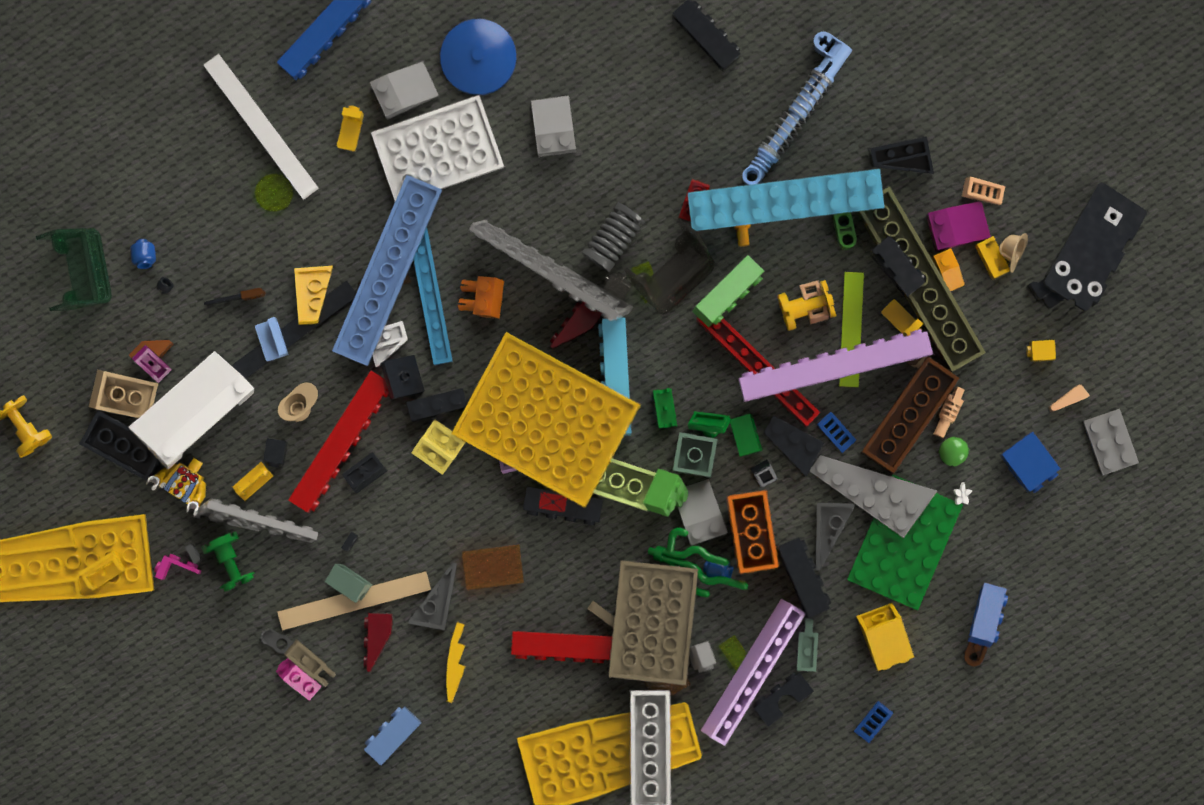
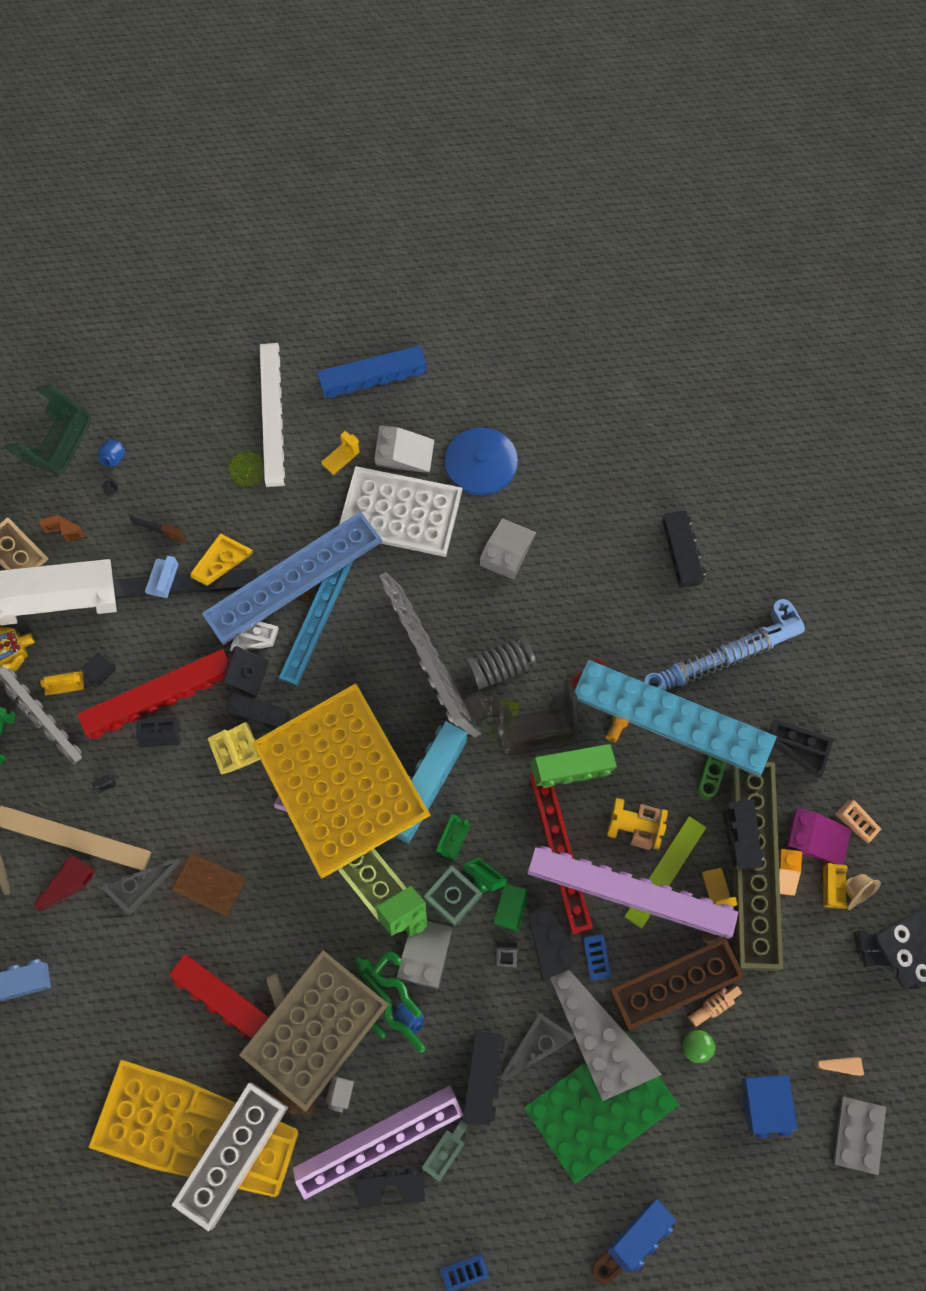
camera: 30 degrees right, 15 degrees down
(157, 369) = (54, 547): magenta piece -> none
(298, 403) = (144, 642): tan piece -> none
(348, 582) = (76, 817): sand green hinge -> none
(454, 669) = (111, 956): yellow slope -> none
(487, 297) = (361, 649): orange brick -> none
(556, 505) = (298, 862): black brick -> none
(580, 323) = (421, 719): dark red slope -> none
(733, 651) = (374, 1108): clear neon green tile -> none
(752, 532) = (460, 1000): orange brick -> none
(885, 636) = (527, 1191): yellow slope -> none
(961, 494) = (683, 1094): white plant -> none
(1041, 350) = (837, 1001): yellow brick -> none

